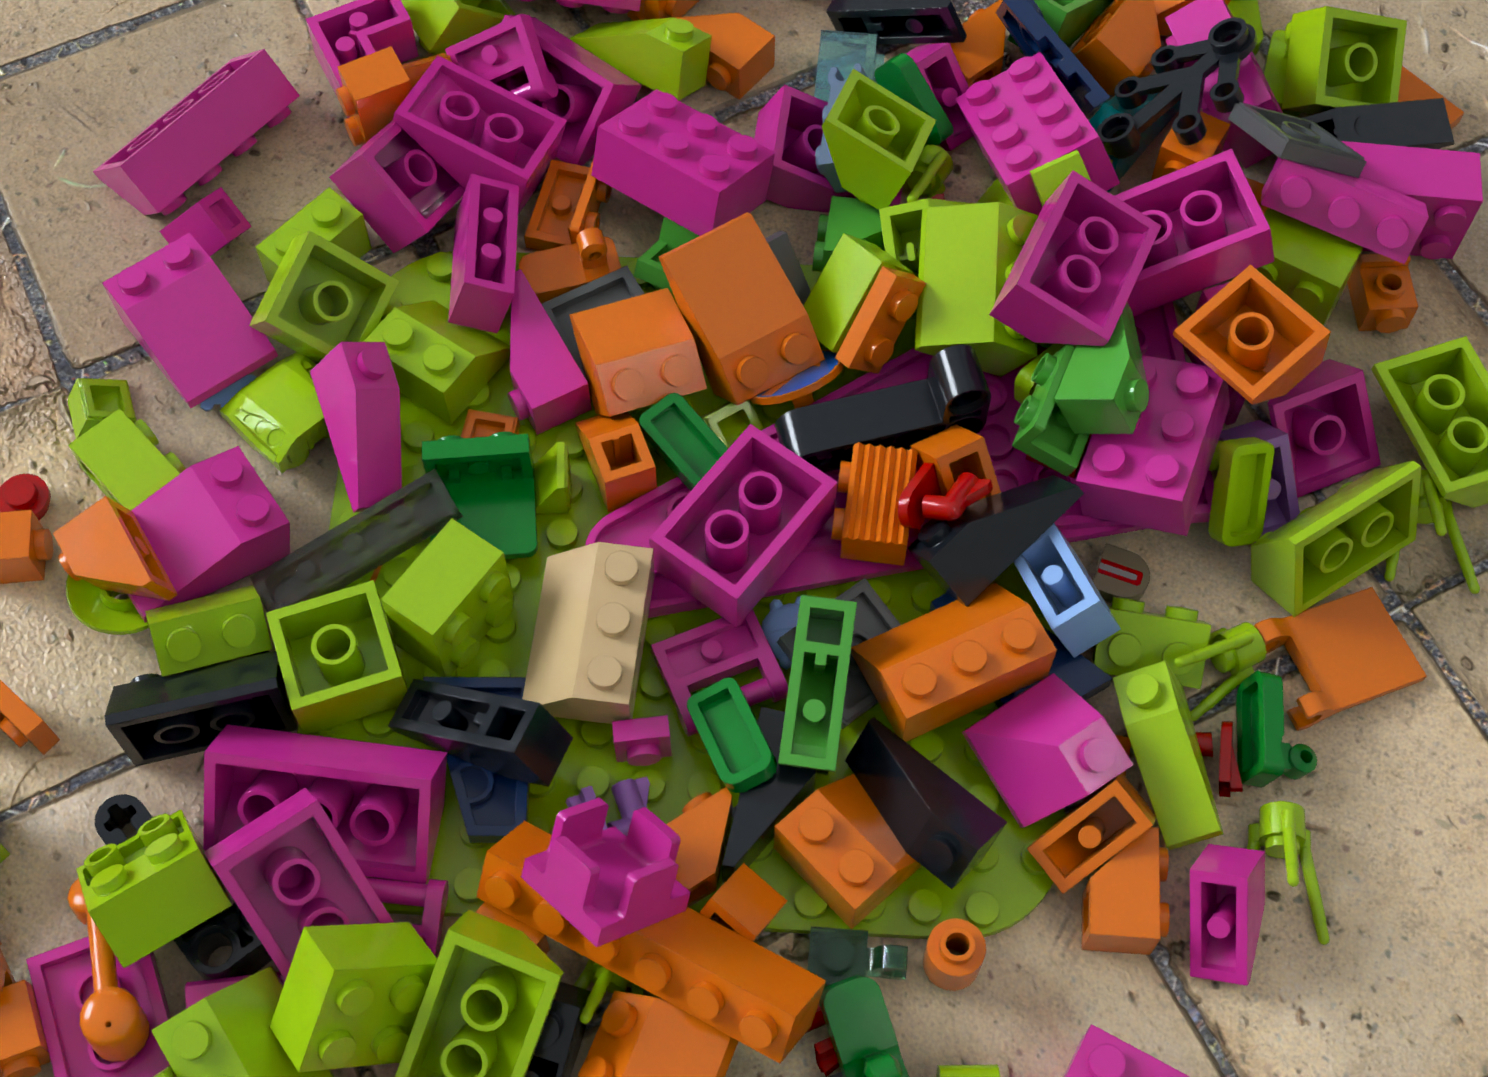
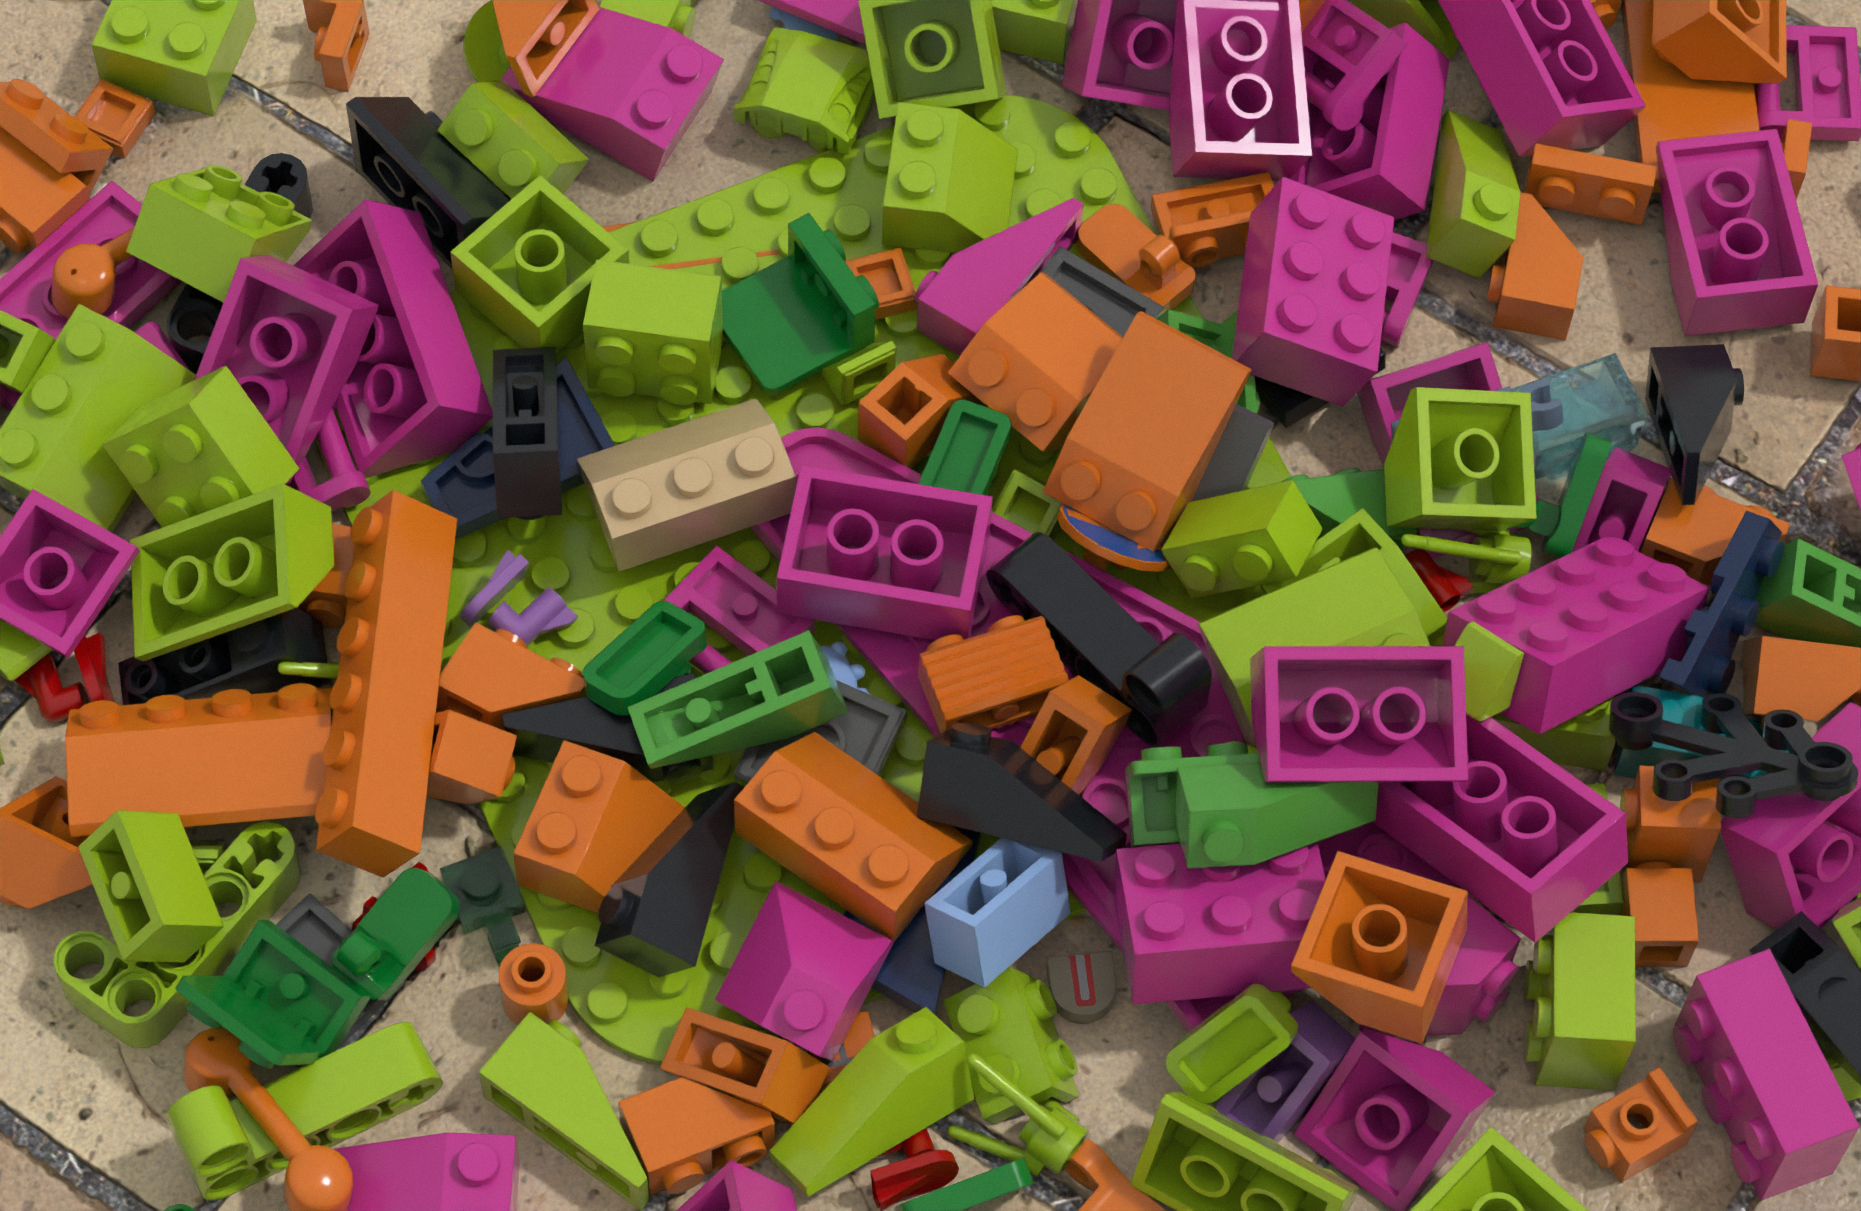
camera: 60 degrees right, 0 degrees up
(359, 544) = (680, 226): clear smoke plate -> none
(362, 418) = (808, 156): dark pink slope -> none
(484, 254) = (1085, 159): dark pink brick -> none
(608, 879) = (417, 601): dark pink panel -> none
(642, 740) = (607, 588): dark pink plate -> none
(880, 320) = (1212, 572): orange plate -> none
(924, 500) = (1007, 715): red piece -> none
(1055, 977) = (553, 1092): none -> lime slope
(1297, 139) = (1718, 897): dark grey tile -> none
(1347, 207) = (1668, 990): dark pink brick -> none

